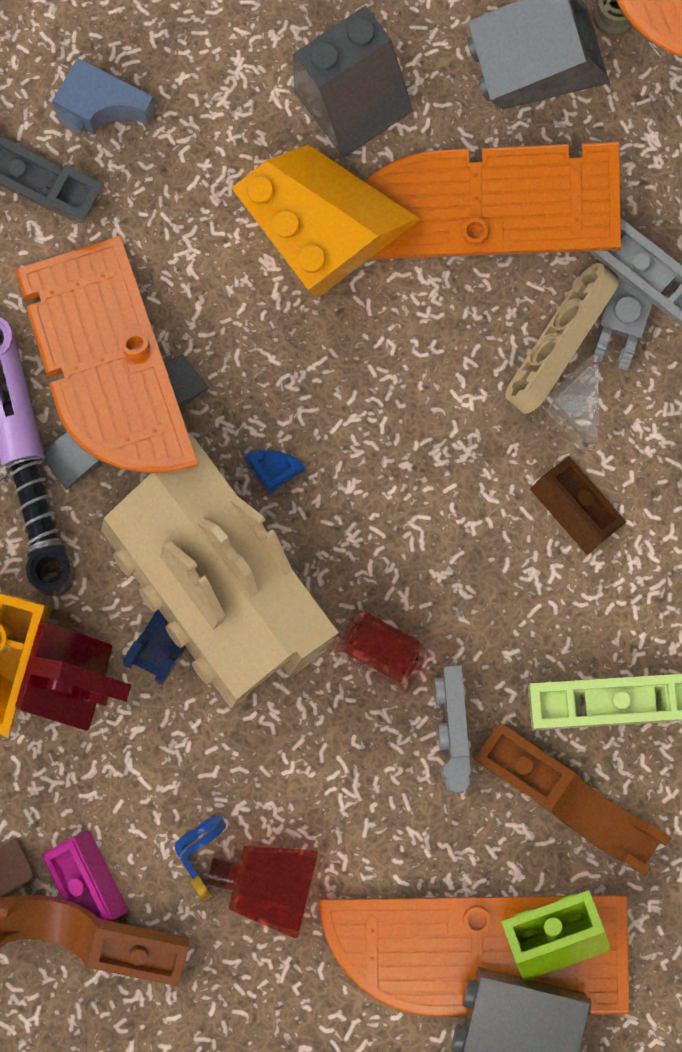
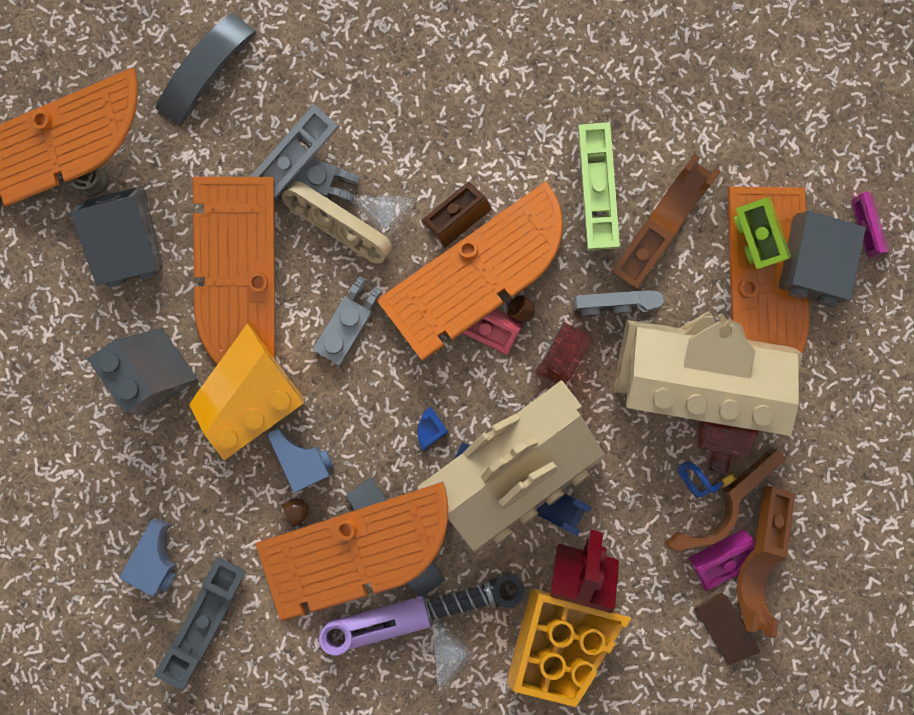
camera: 90 degrees left, 5 degrees up
(112, 820) = (733, 494): none -> dark orange piece
(162, 286) = (296, 511): none -> reddish brown hinge
(225, 291) = (301, 465): none -> sand blue arch
(348, 854) = (709, 374): none -> tan piece
(420, 354) = (346, 324): none -> light grey hinge
(421, 547) = (495, 331): none -> coral slope
(442, 593) = (521, 309): none -> reddish brown hinge
(487, 517) = (469, 276): none -> orange door

